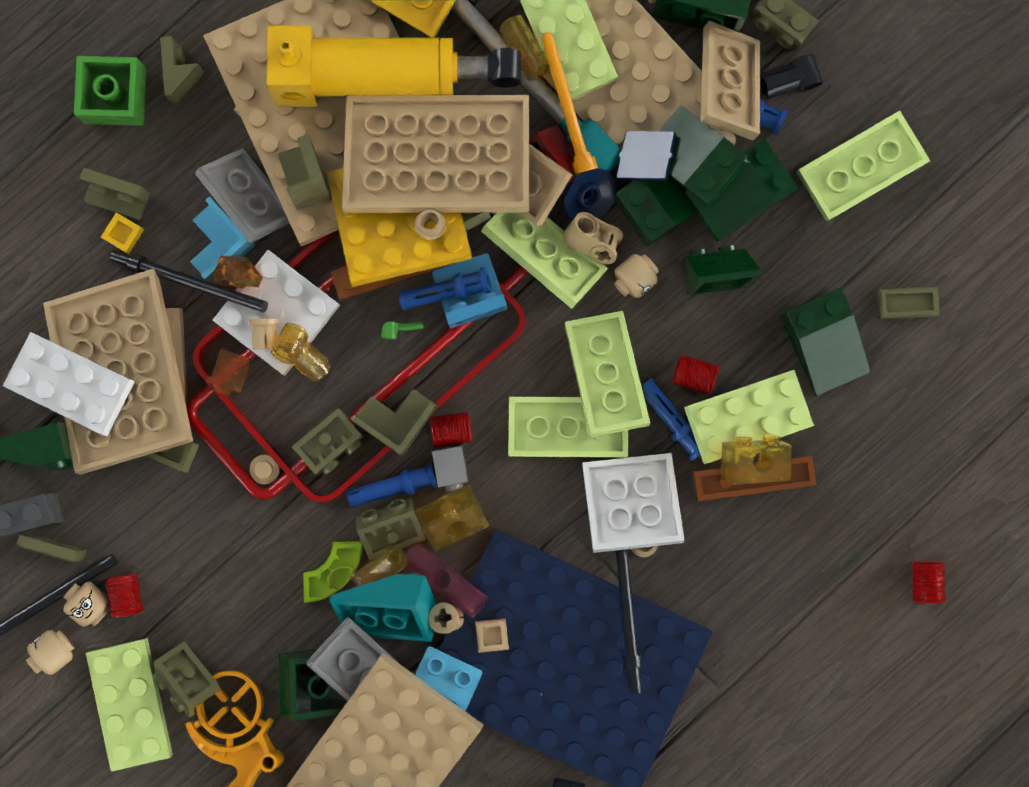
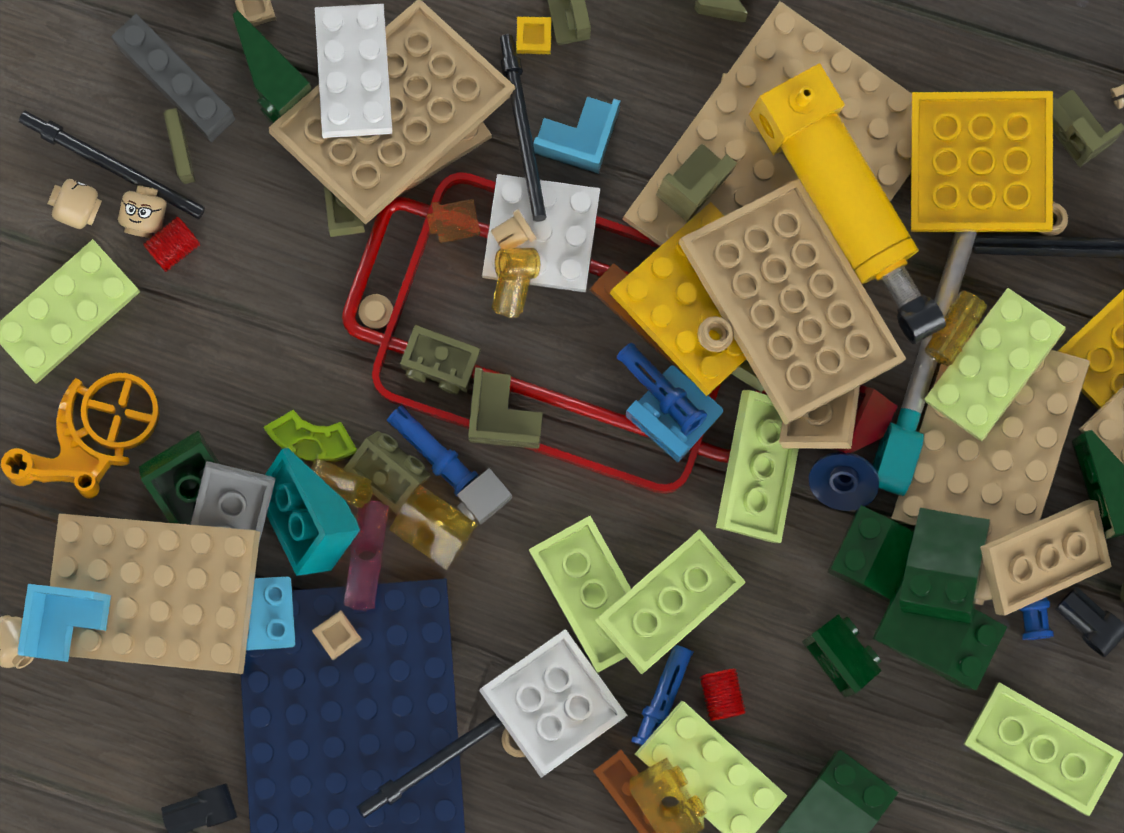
camera: 60 degrees right, 5 degrees down
(184, 678) = (121, 351): olive bracket -> none
(236, 272) = (558, 171): clear orange bracket -> none
(244, 194) = (642, 133): light grey tile -> none
(391, 329) = (589, 356): bright green hand -> none
(441, 610) = (328, 566): tan bush -> none
(450, 430) = (522, 476): red piece -> none
(583, 160) = (876, 451): light orange piece -> none
(593, 236) = (803, 510): tan piece -> none
(636, 275) = (789, 576): tan head -> none
(646, 155) = (917, 514): piece -> none

